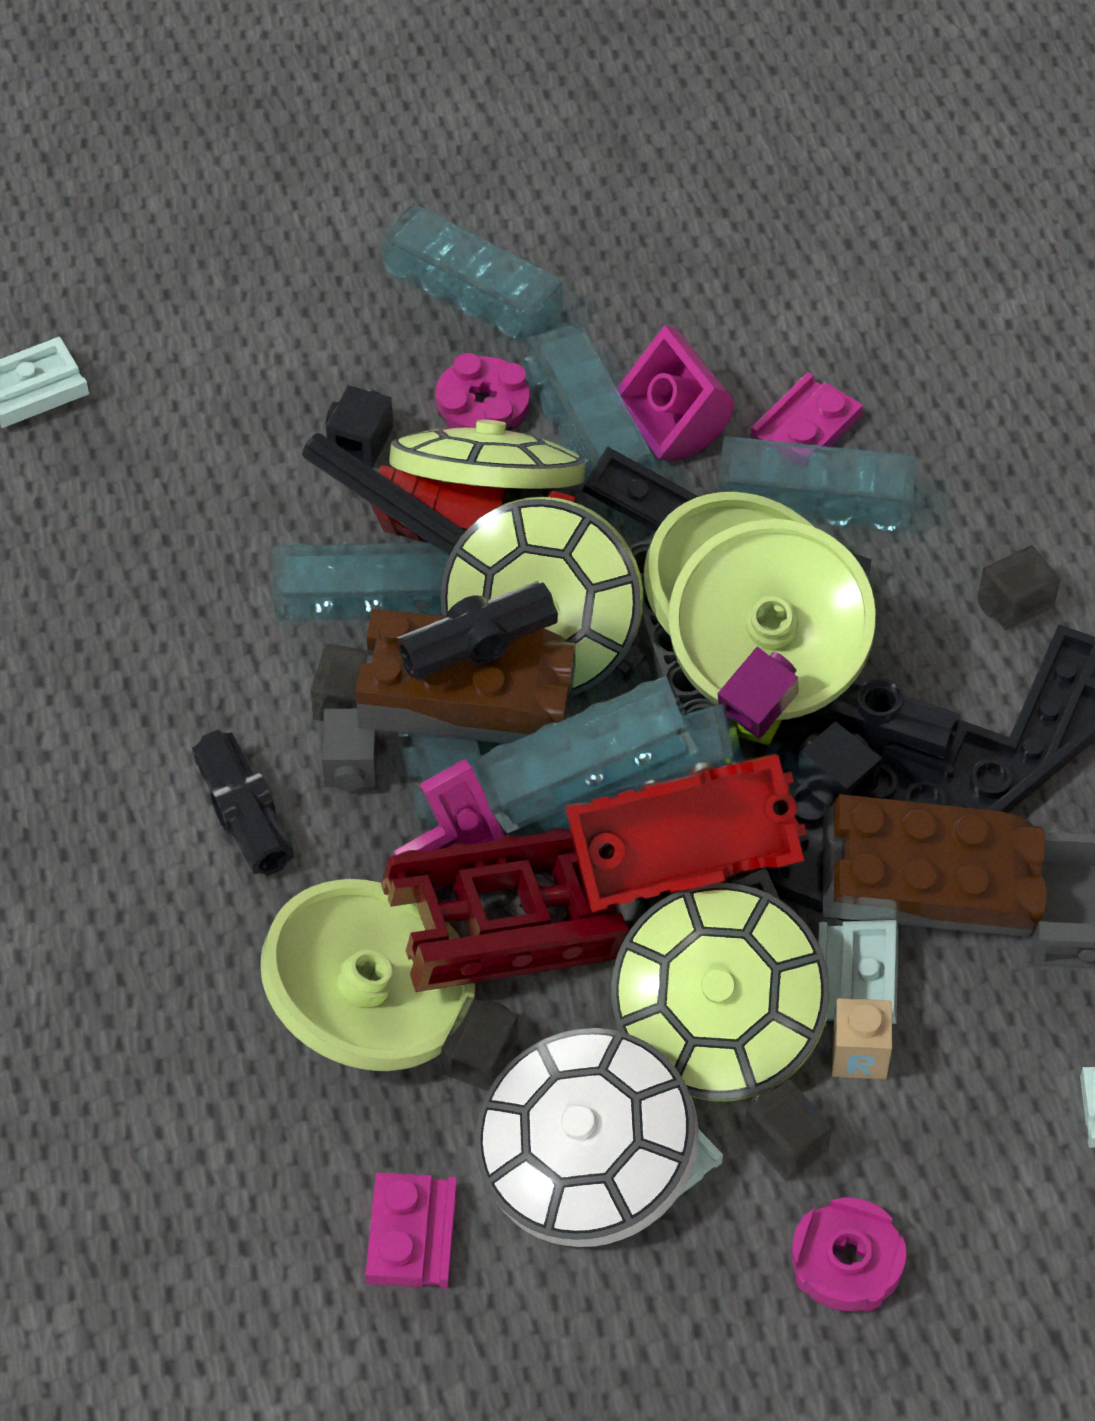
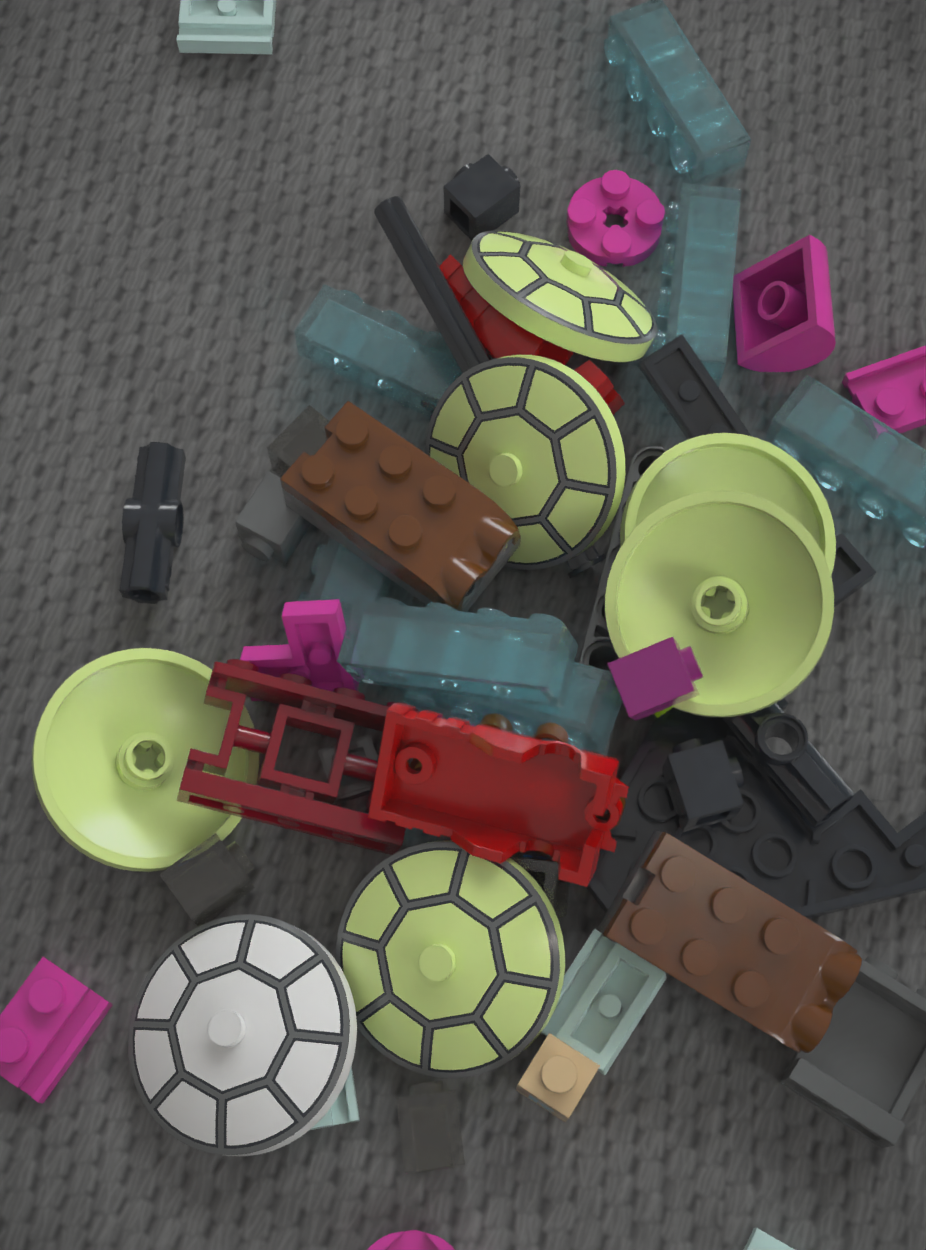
camera: 30 degrees right, 15 degrees up
(477, 630) = (416, 478): black piece -> none

